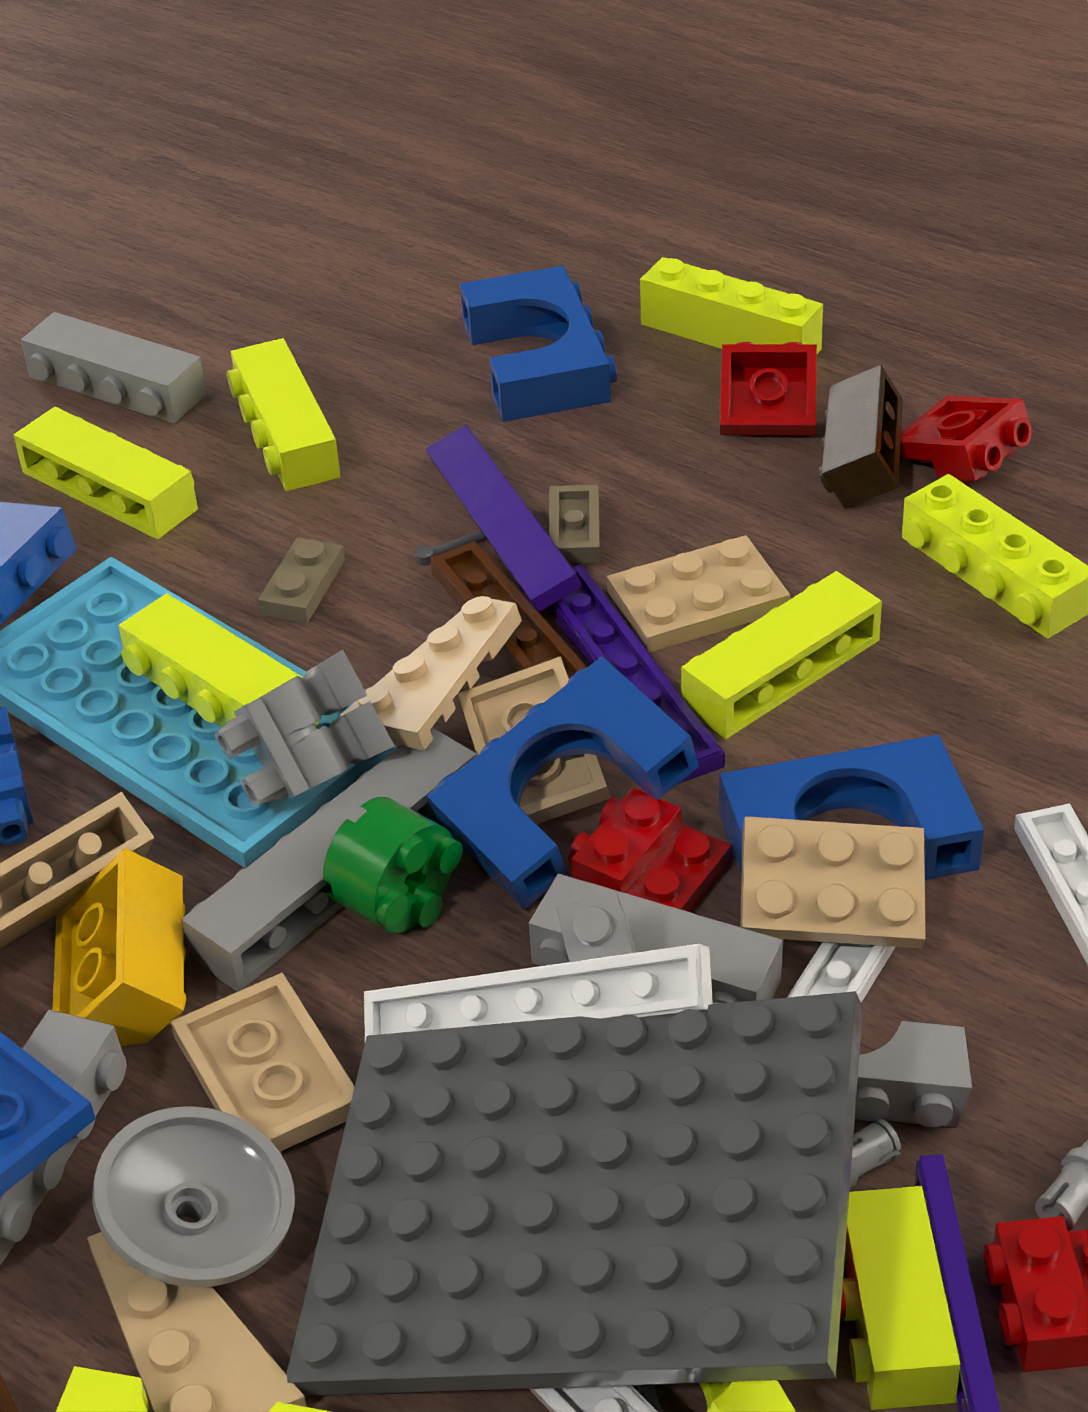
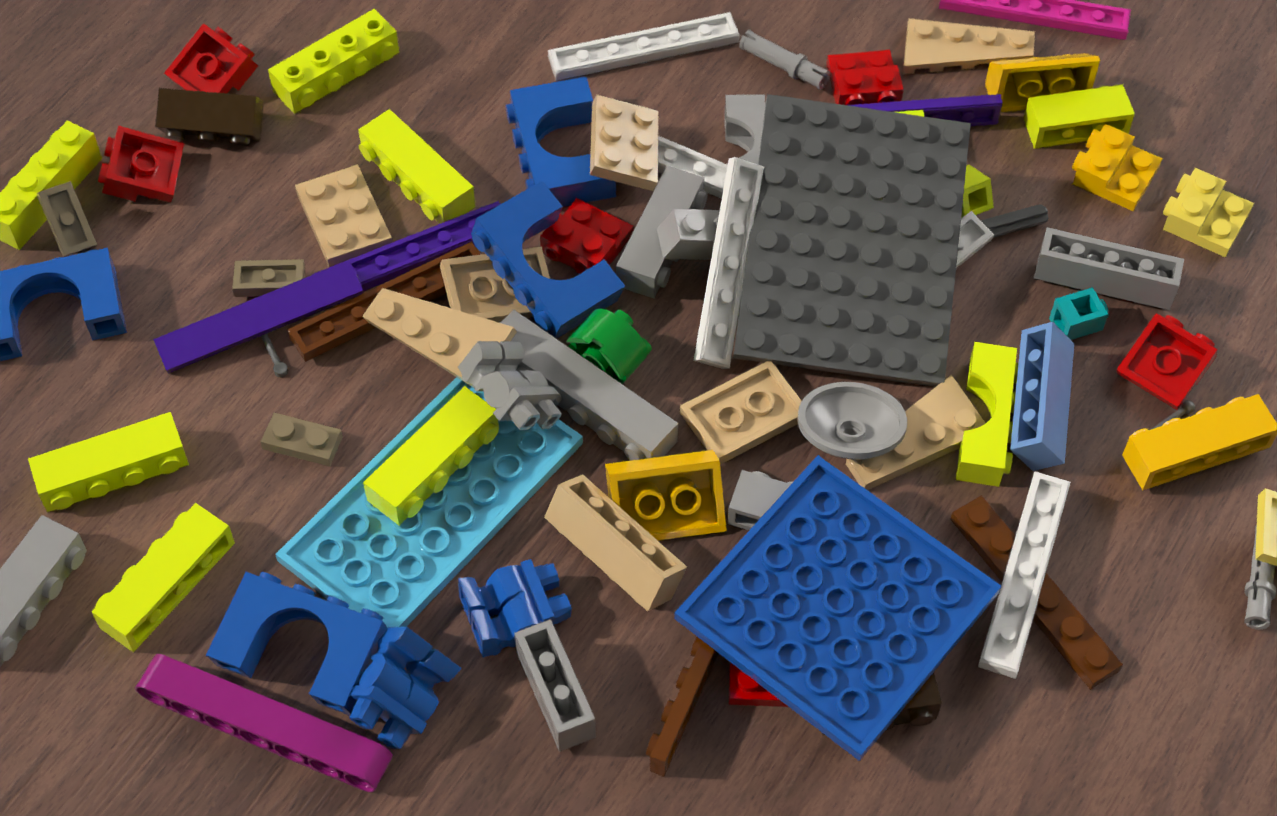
camera: 95 degrees left, 15 degrees up
(665, 333) = (66, 219): none -> dark tan plate

